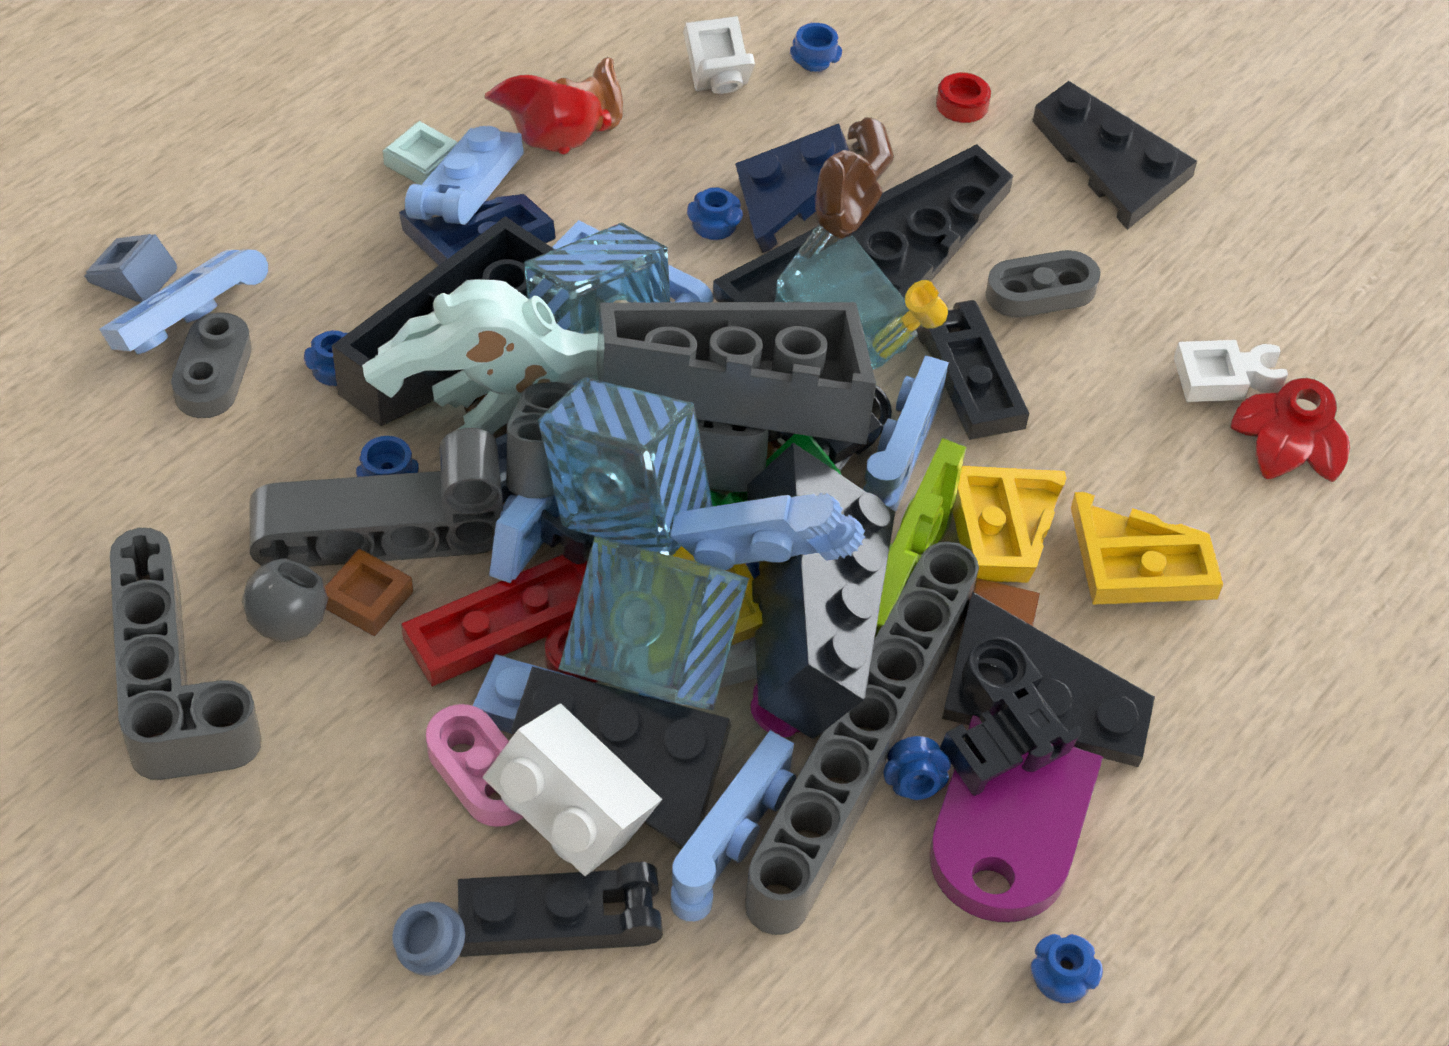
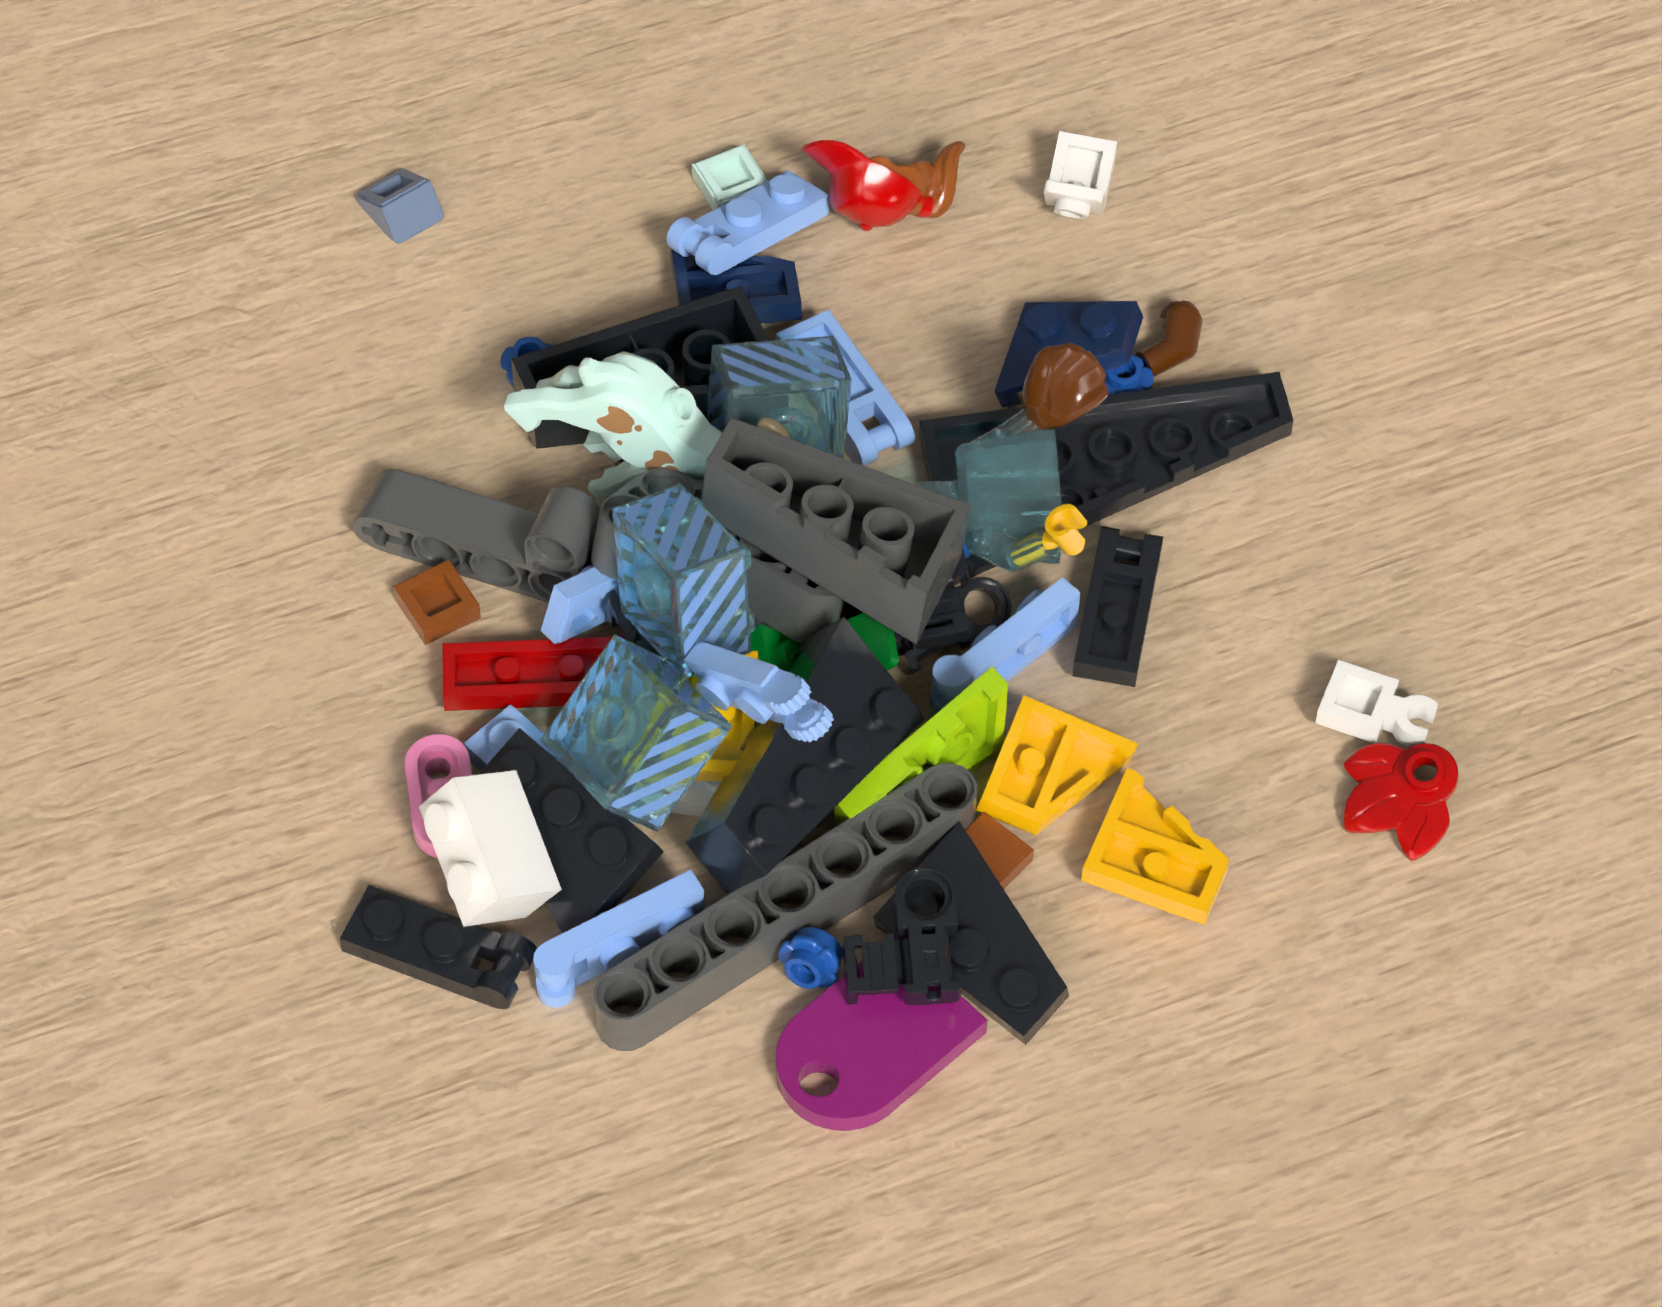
camera: 30 degrees right, 5 degrees up
(151, 646) = (235, 584): dark grey beam -> none
(185, 298) = (426, 255): light blue plate -> none
(218, 352) = (424, 325): dark grey plate -> none
(284, 600) = (356, 582): dark grey piece -> none
(388, 454) = (518, 477): blue plate -> none
(428, 938) = (317, 922): sand blue plate -> none
(715, 213) = (970, 359): blue plate -> none
(816, 47) = (1192, 200): blue plate -> none
(963, 97) = (1314, 312): red tile -> none
(1042, 283) = (1249, 546): dark grey plate -> none
(1064, 984) = (828, 1198): blue plate -> none
(1117, 153) = (1431, 431): black wing -> none

